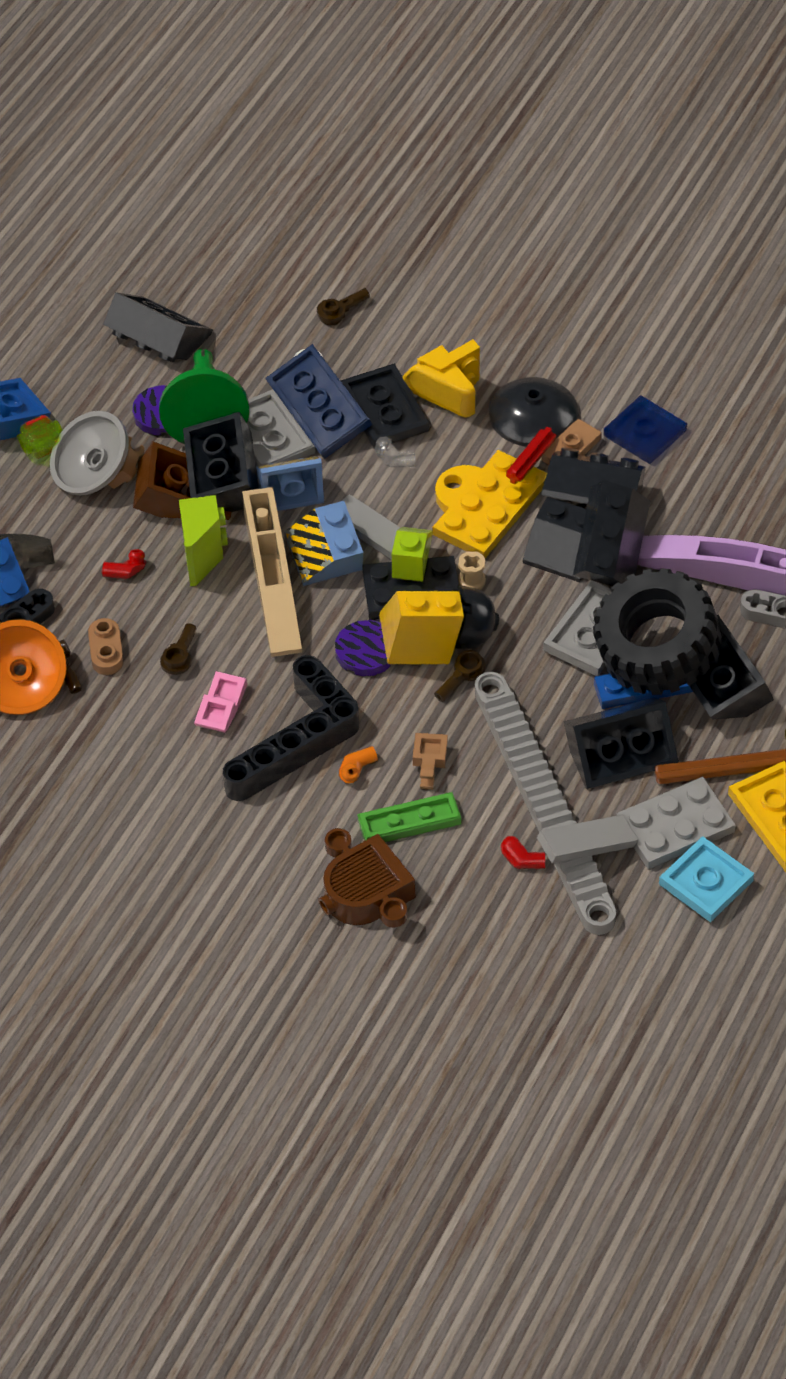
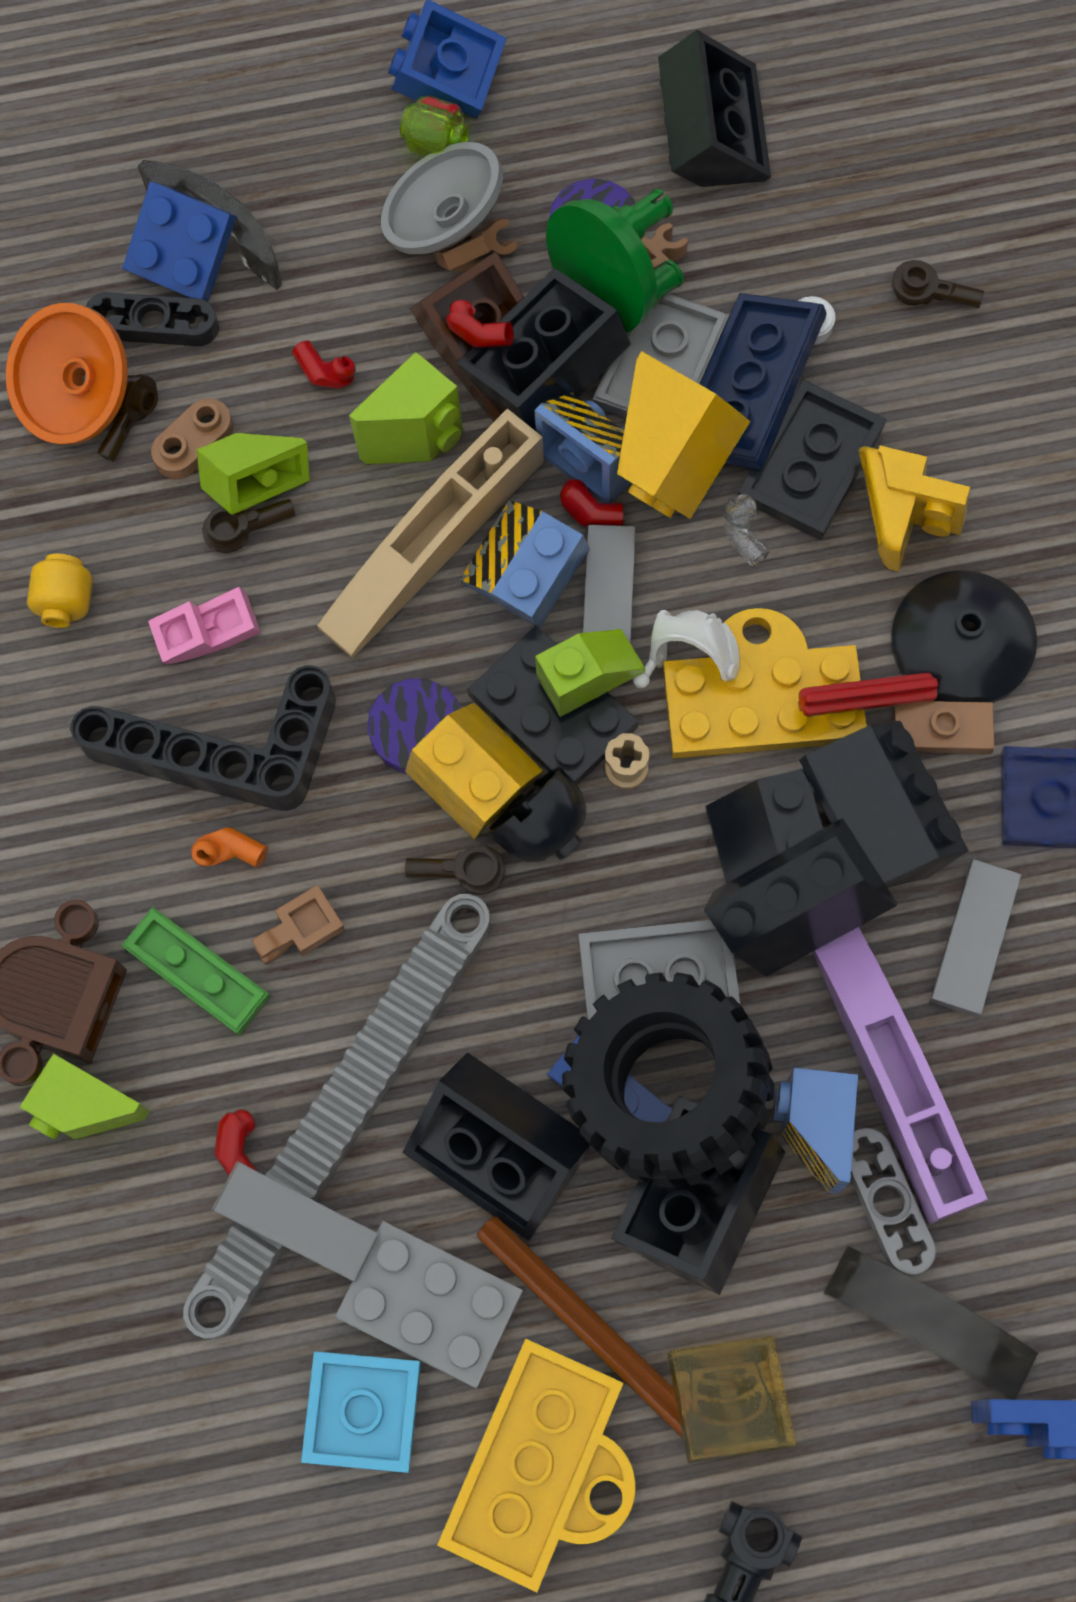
camera: 55 degrees right, 20 degrees up
(138, 748) = (59, 590): none -> yellow head
(155, 625) = (251, 468): none -> lime slope
(185, 478) = (475, 333): none -> red arm
(307, 505) = (586, 509): none -> red arm
(327, 433) = (675, 438): none -> yellow slope
(433, 493) = (698, 629): none -> white helmet
(436, 903) = (77, 1103): none -> lime slope
(687, 500) = (975, 938): none -> light grey tile
(736, 599) = (819, 1122): none -> medium blue slope

